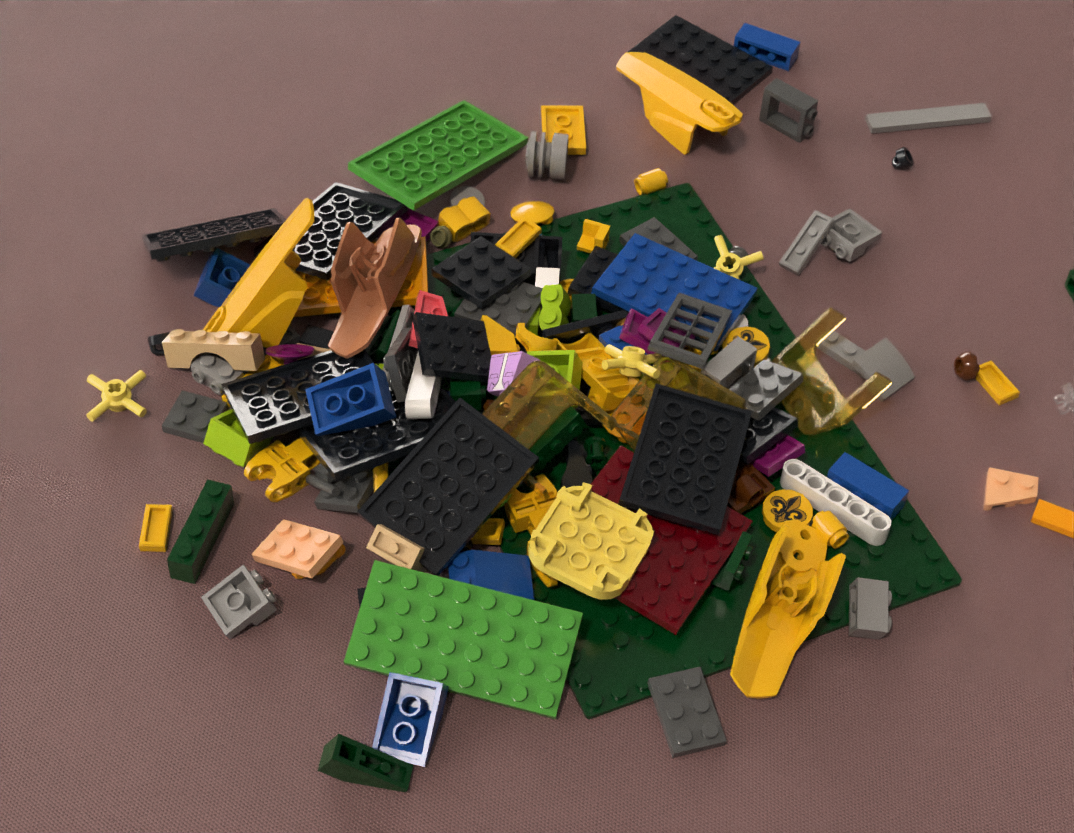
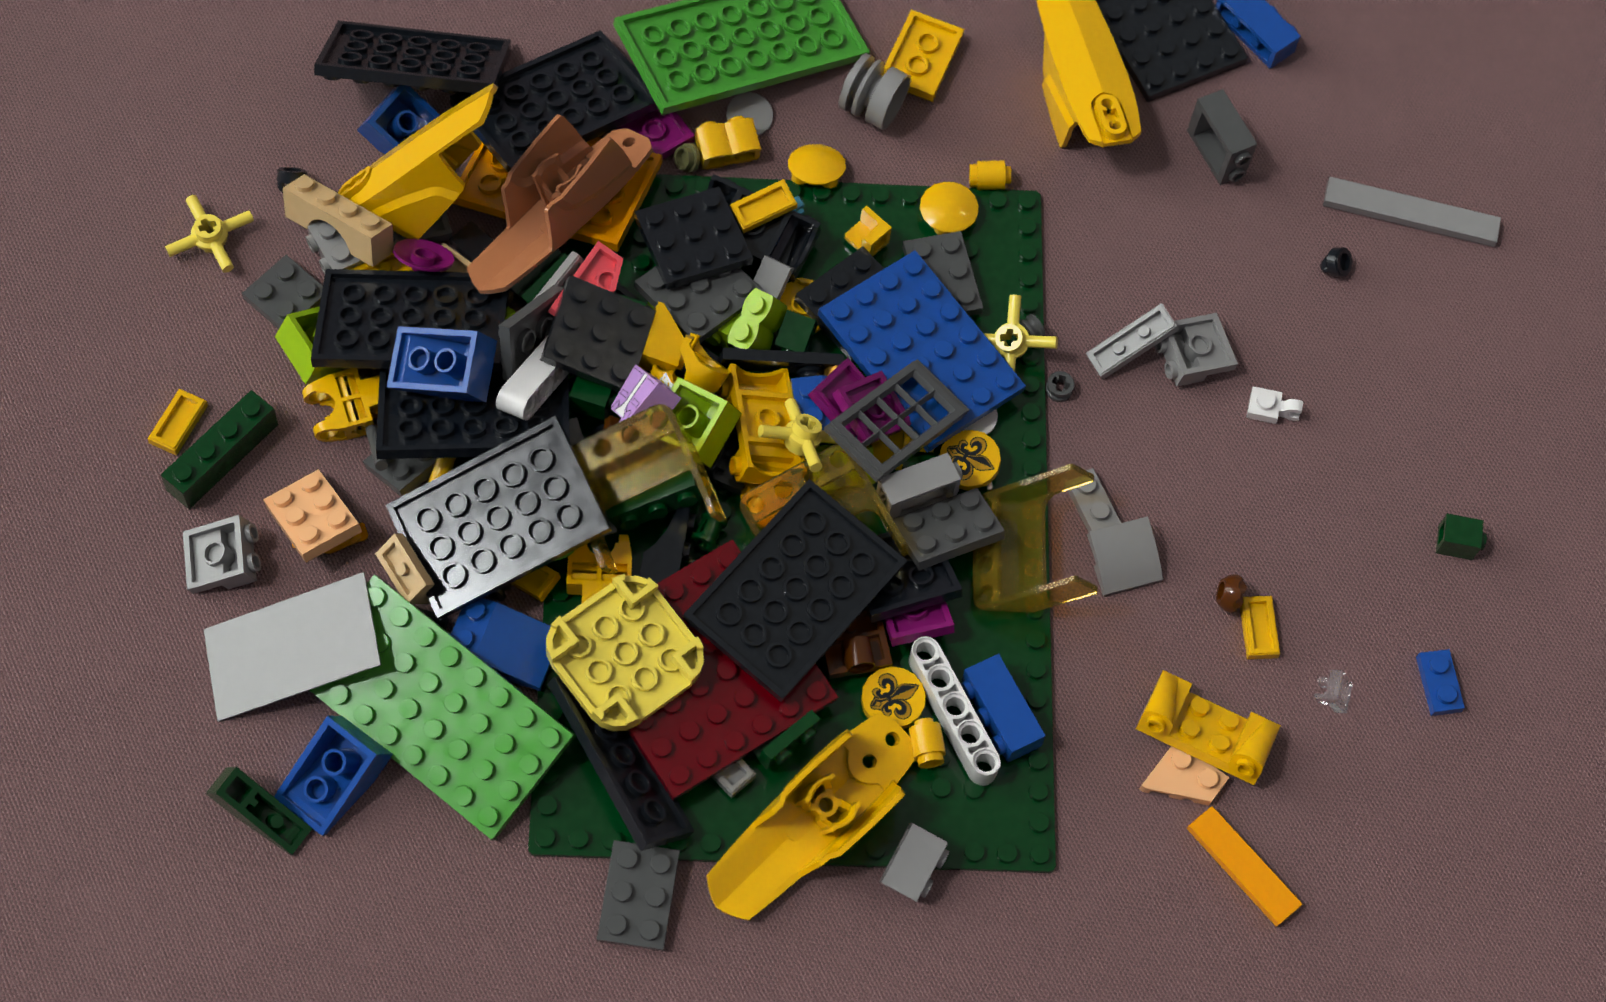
camera: 20 degrees right, 15 degrees up
(332, 640) = (291, 647): none -> light grey piece
(630, 626) = (627, 777): none -> black plate
(637, 207) = (949, 207): none -> yellow dish
(708, 605) = (735, 778): none -> light grey tile
(779, 286) = (1054, 378): none -> dark grey bush
(916, 254) = (1267, 406): none -> white plate
(1032, 454) = (1207, 729): none -> yellow piece

